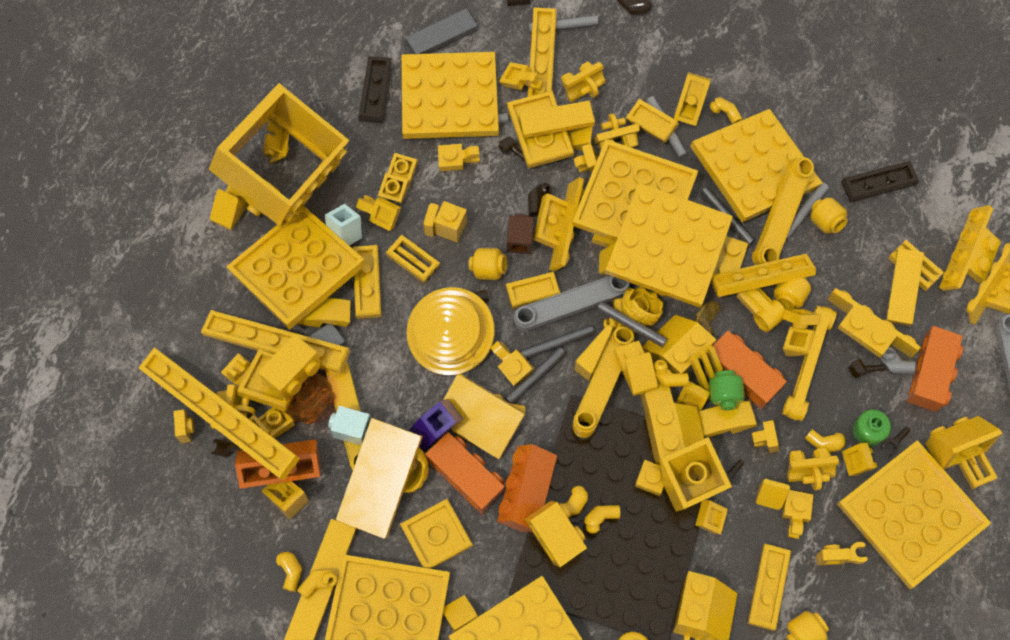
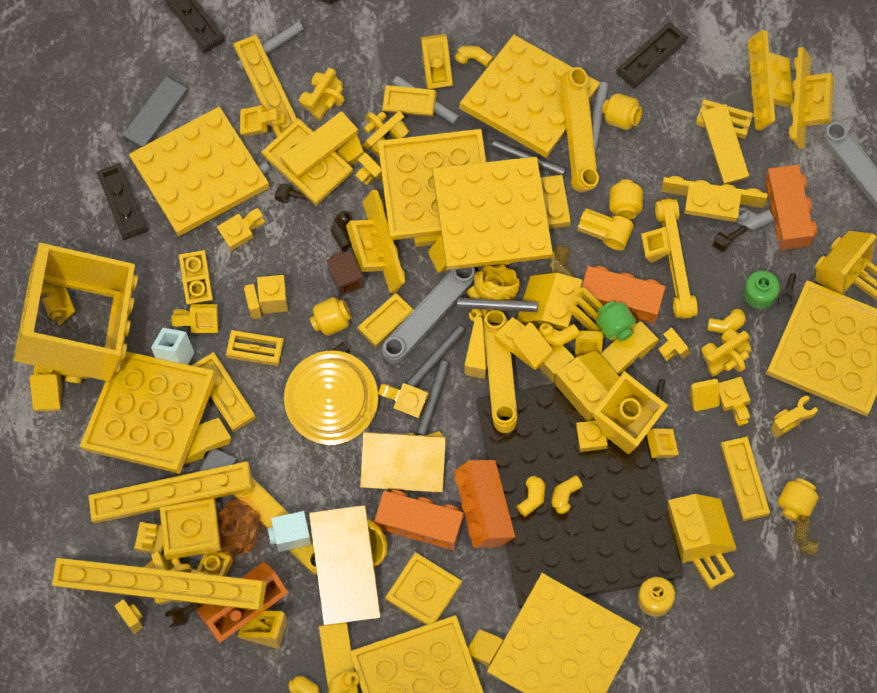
camera: 25 degrees left, 0 degrees up
(290, 367) = (205, 506): yellow brick -> none
(436, 423) = (369, 487): slope -> none
(556, 533) = (534, 528): yellow brick -> none
(762, 275) = (592, 198): yellow tile -> none
(801, 317) = (647, 220): yellow plate -> none
(858, 459) = (764, 324): yellow tile -> none

